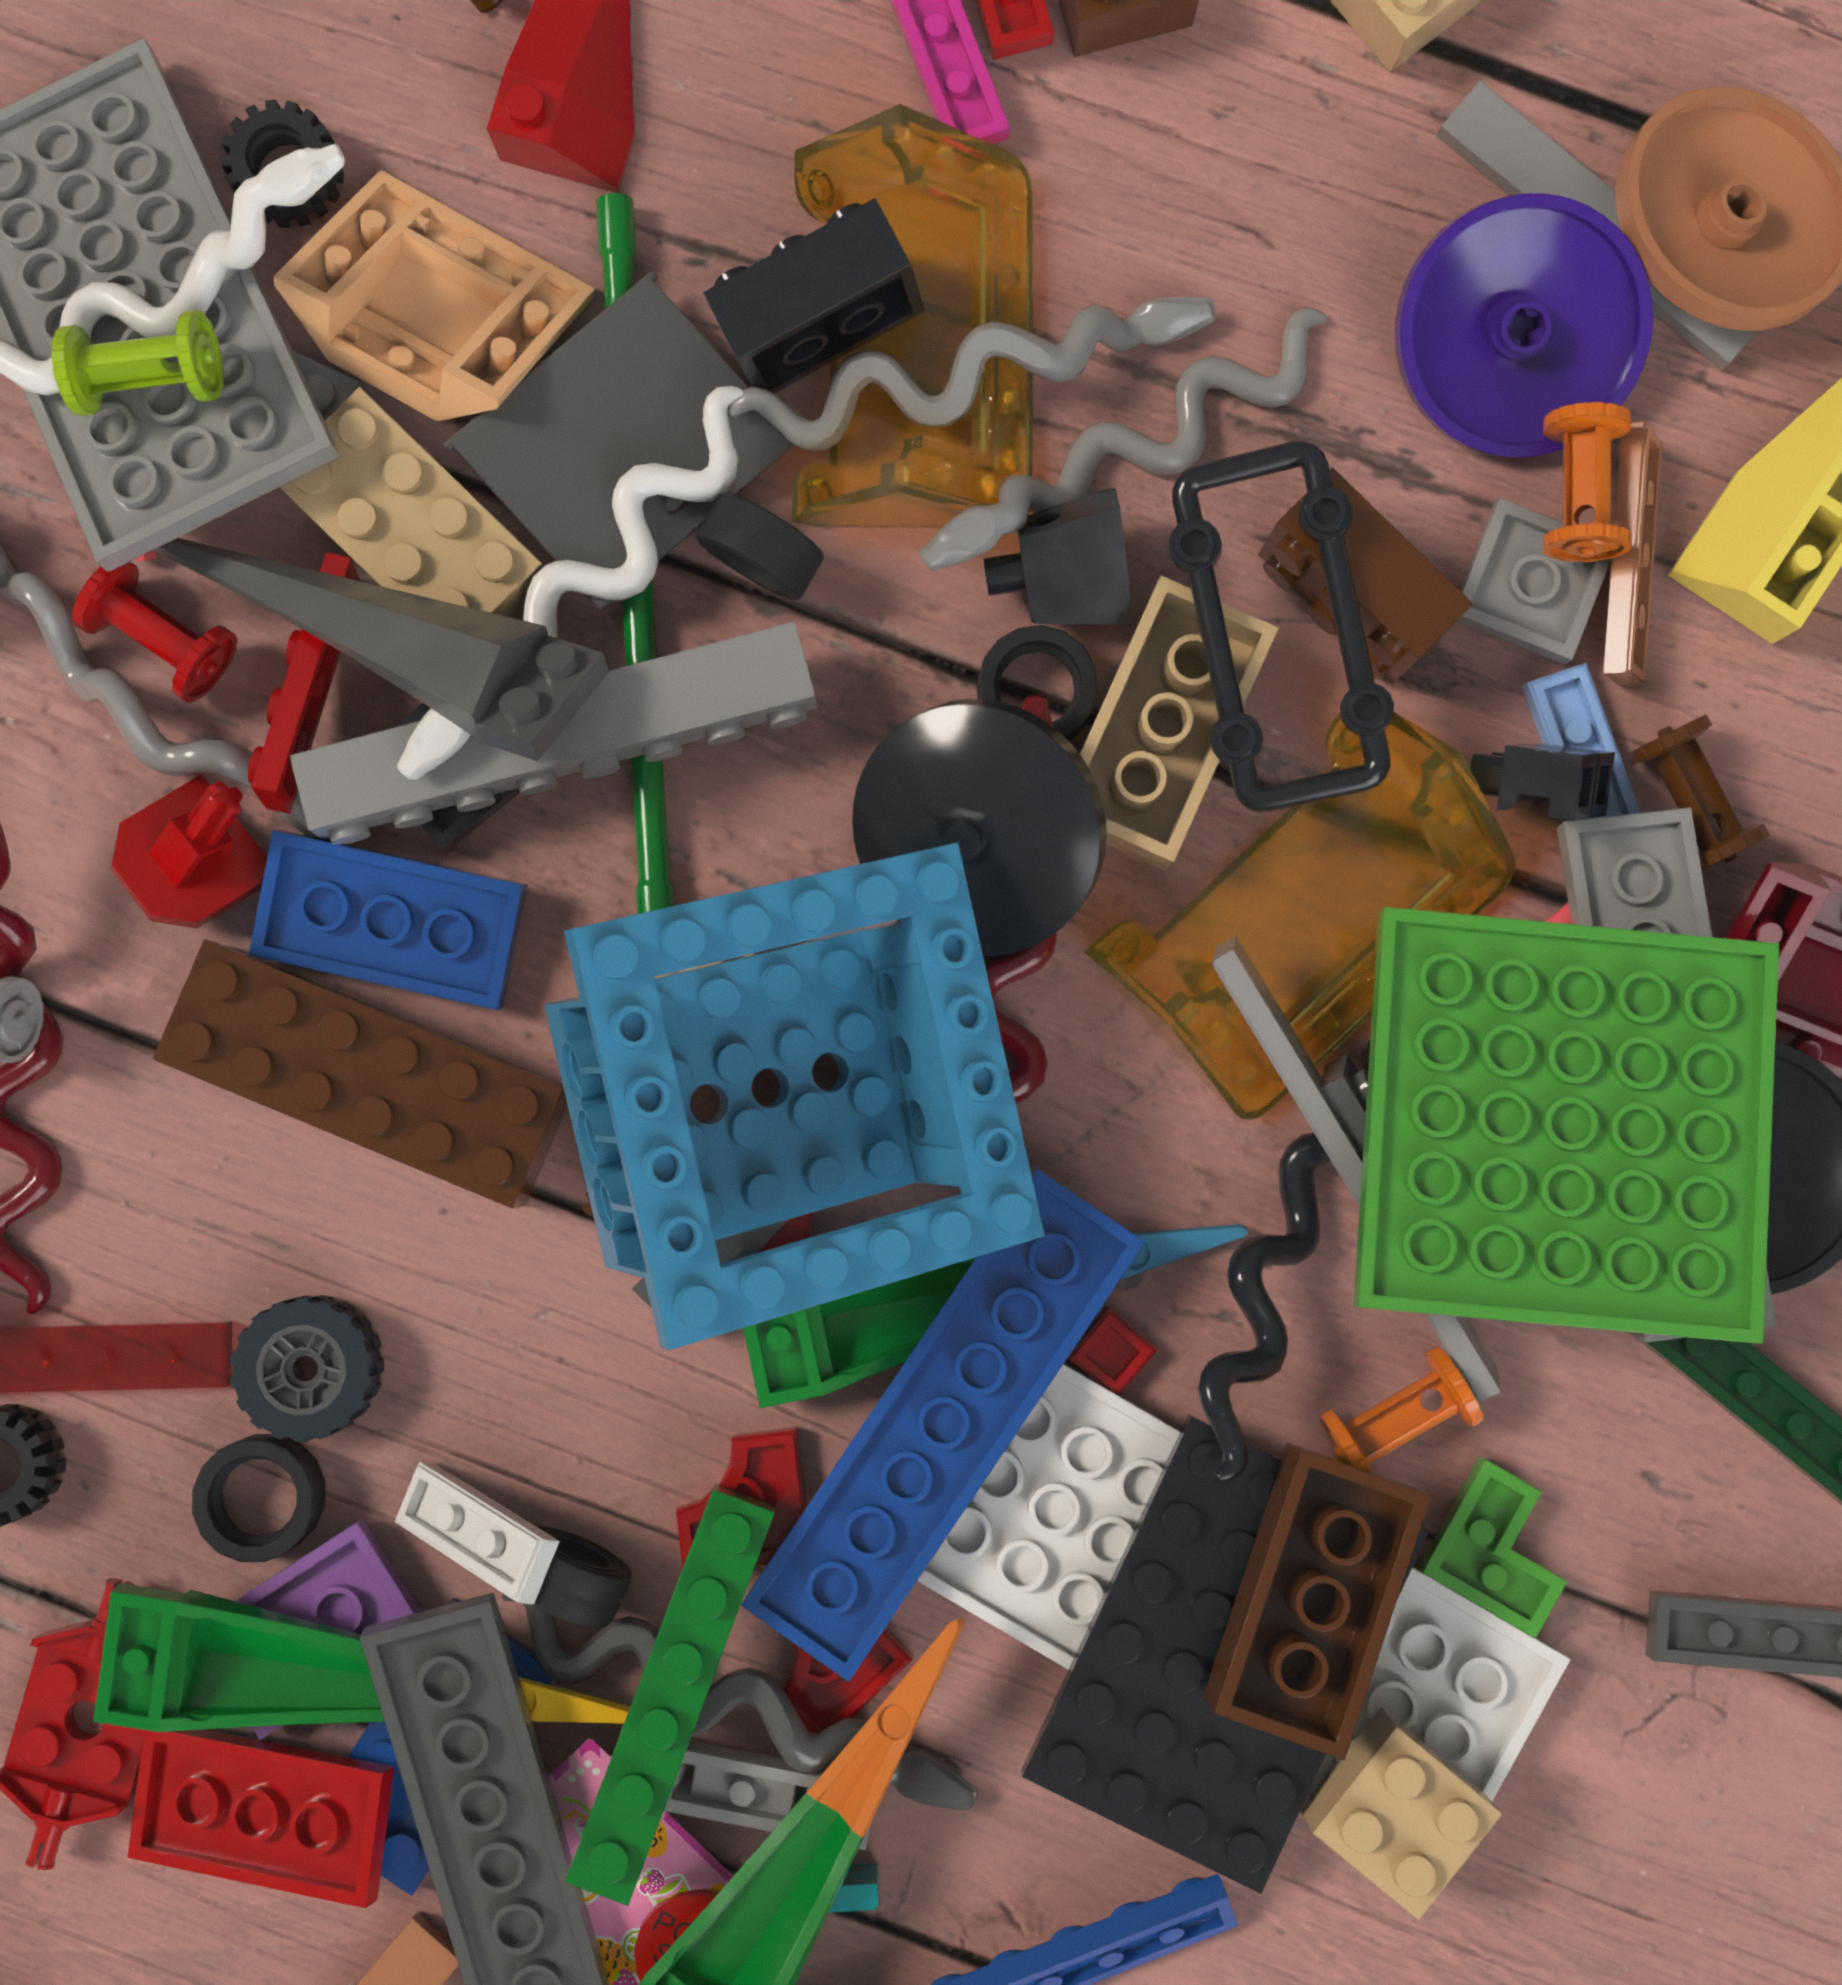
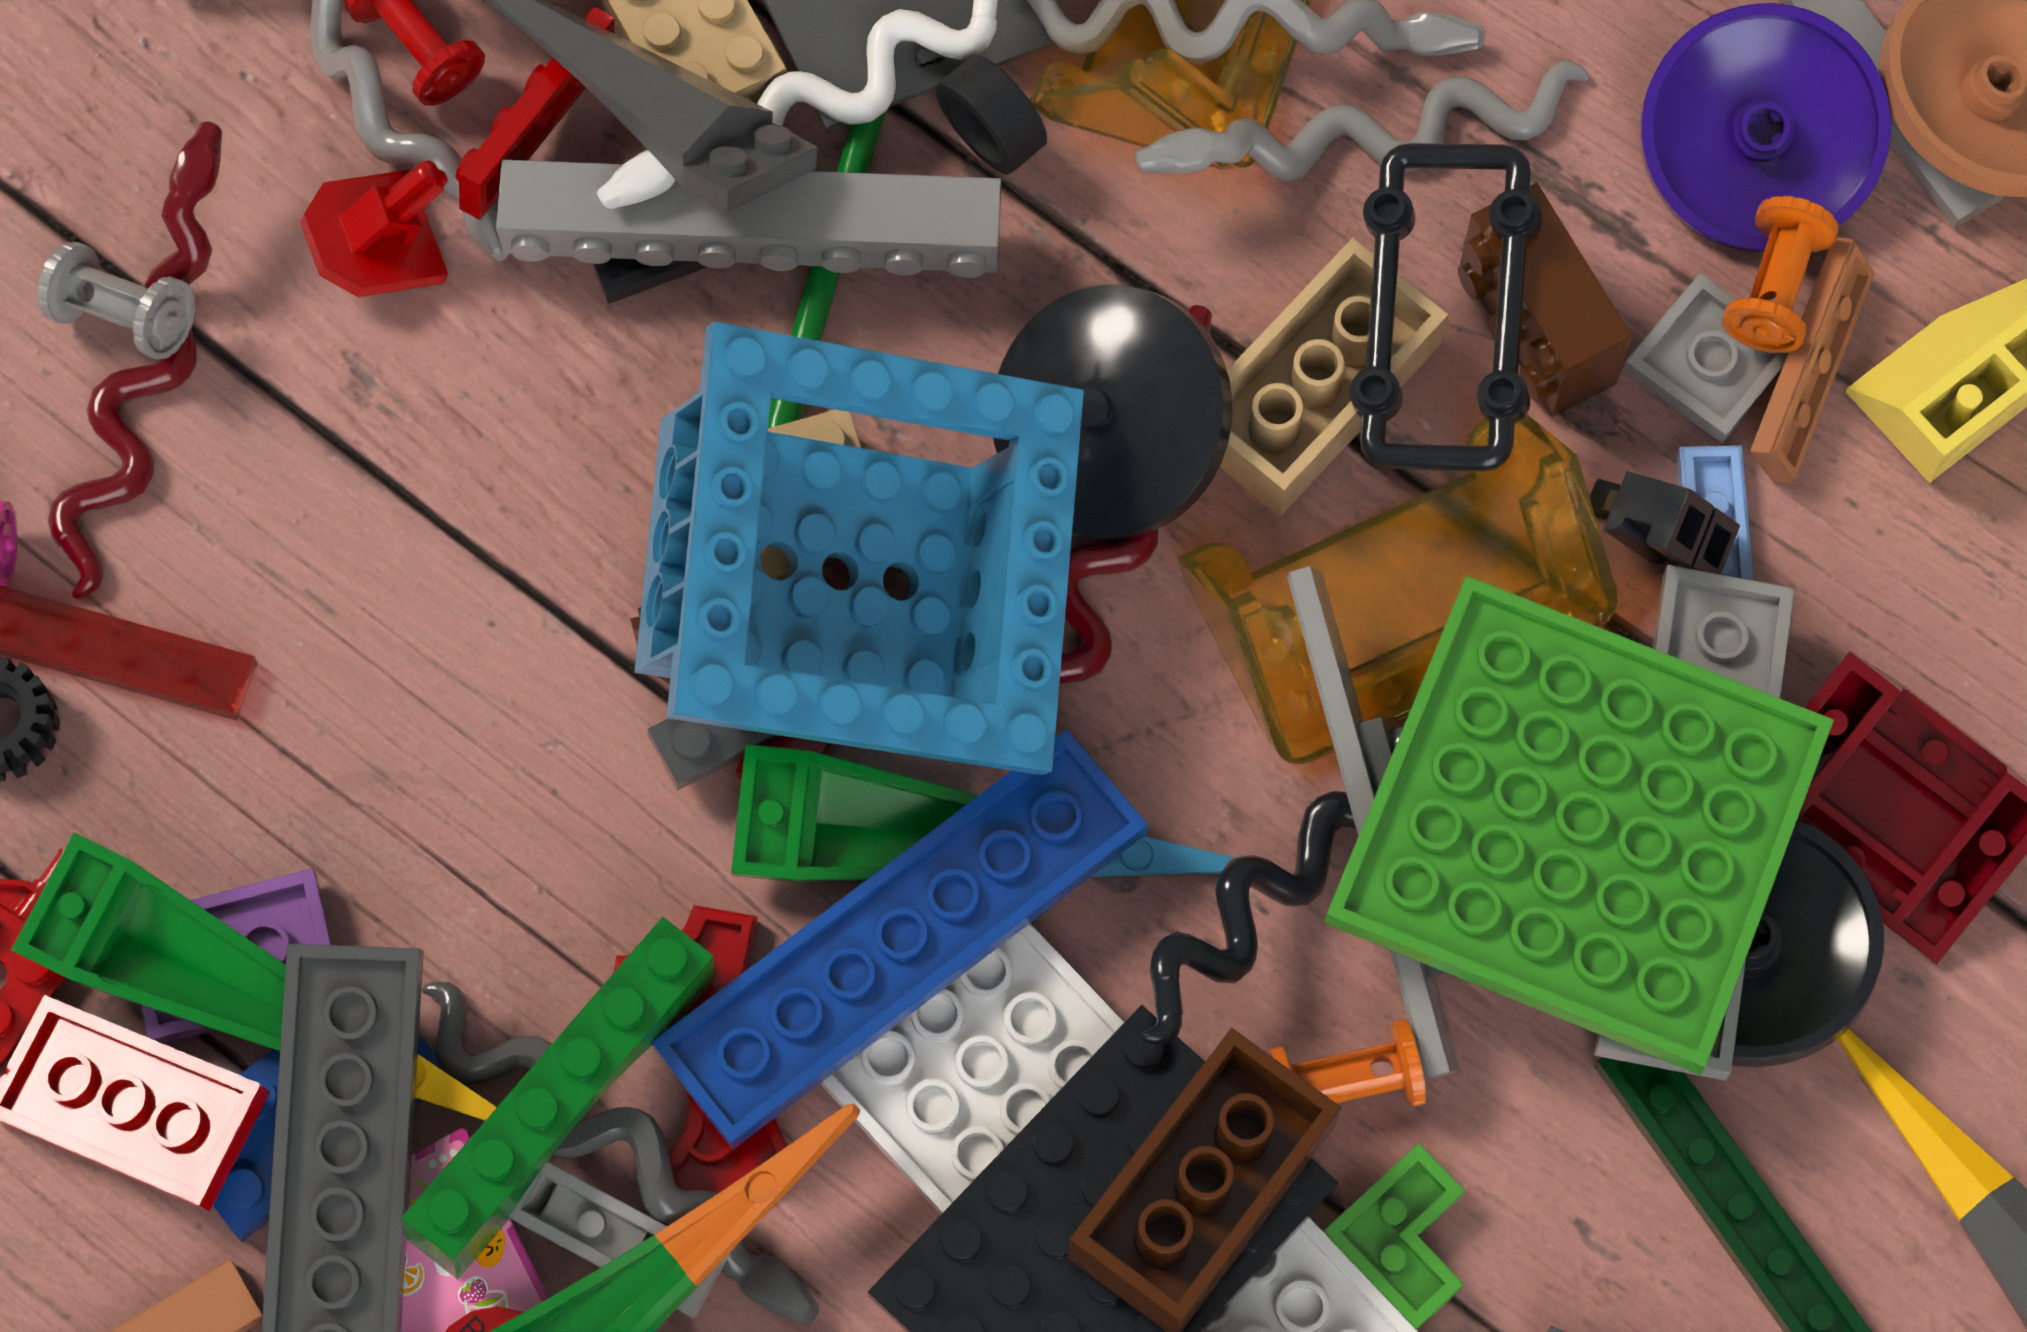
camera: 20 degrees right, 15 degrees down
(212, 1516) = (206, 779): black tyre -> none
(270, 1376) = (327, 684): black wheel -> none
(363, 1074) = (467, 470): reddish brown brick -> none
(387, 919) = (536, 342): blue plate -> none
(477, 1532) = (424, 900): white tile -> none
(582, 1581) = (496, 971): black tyre -> none
(1050, 642) = (1224, 274): black tyre -> none
(1069, 564) = (1273, 211): black torso -> none
(1112, 1352) = (1087, 939): red tile -> none
(1696, 787) = (1807, 569): reddish brown hose -> none

